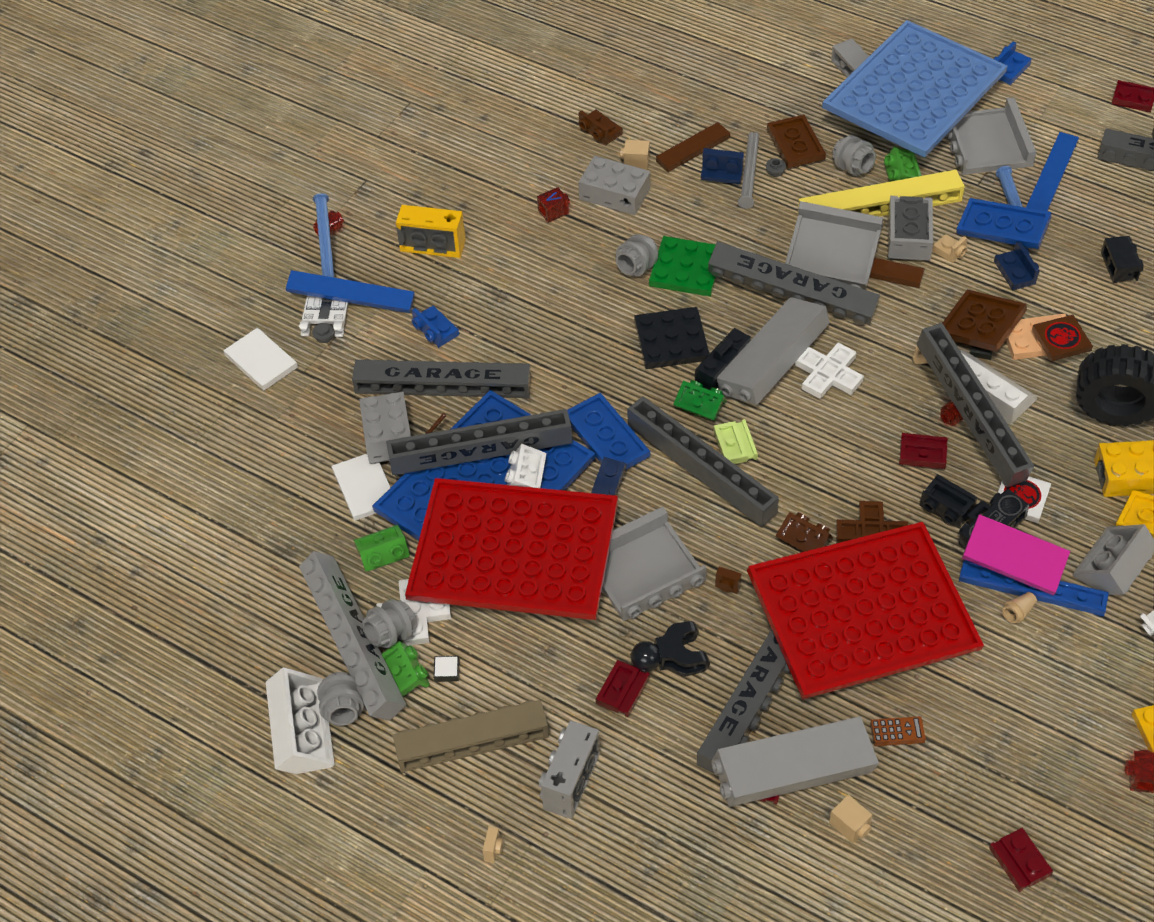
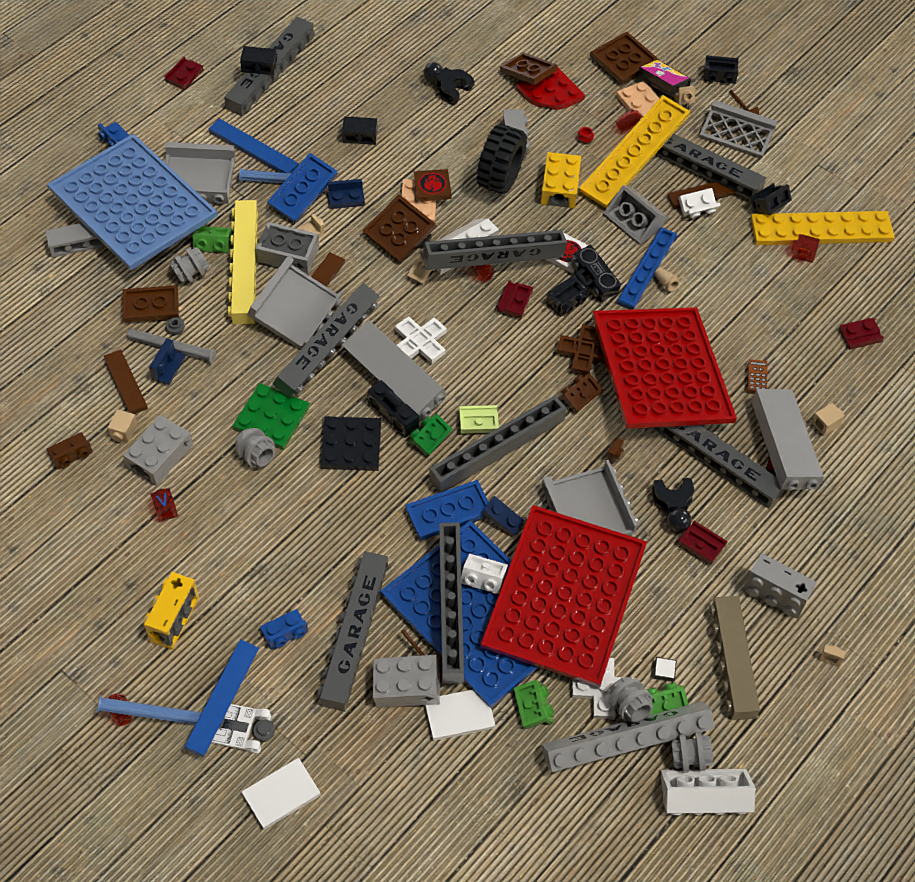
camera: 85 degrees left, 5 degrees up
(1016, 554) = (629, 265): dark pink tile -> none

